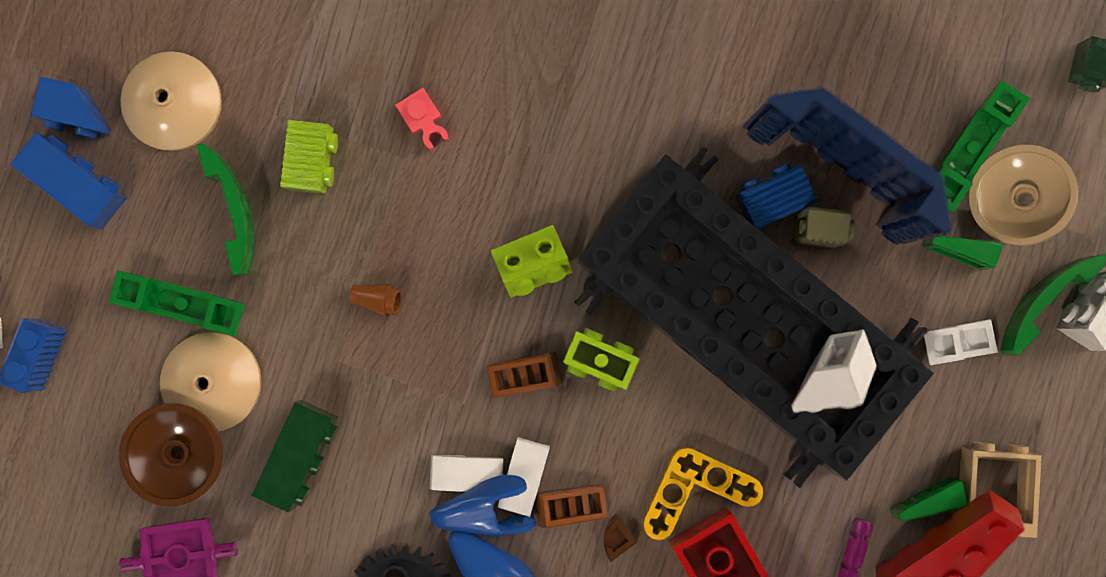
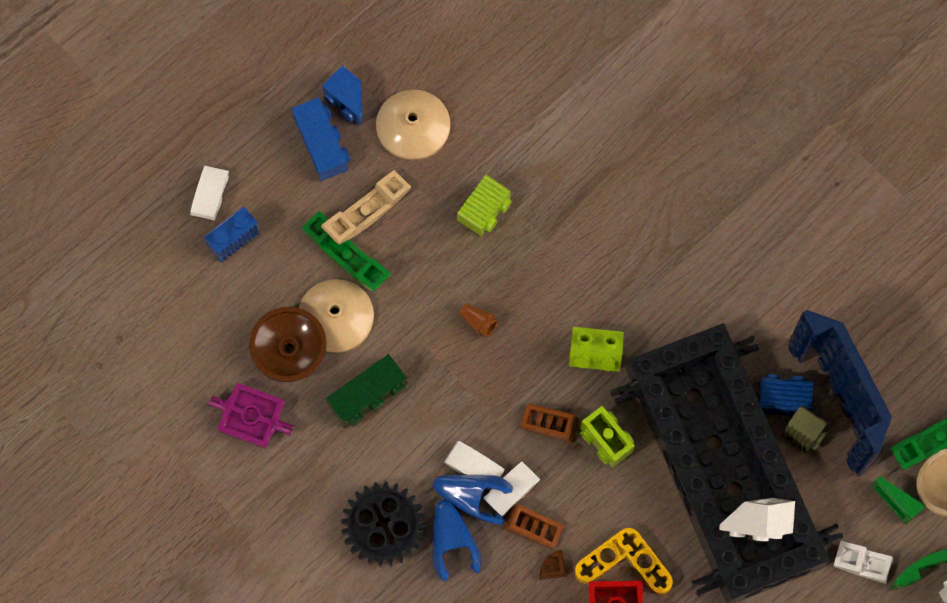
camera: 30 degrees right, 15 degrees down
(173, 240) = (368, 209): none -> tan slope
(239, 250) = (408, 238): green slope -> none
(420, 115) = (573, 219): coral plate -> none

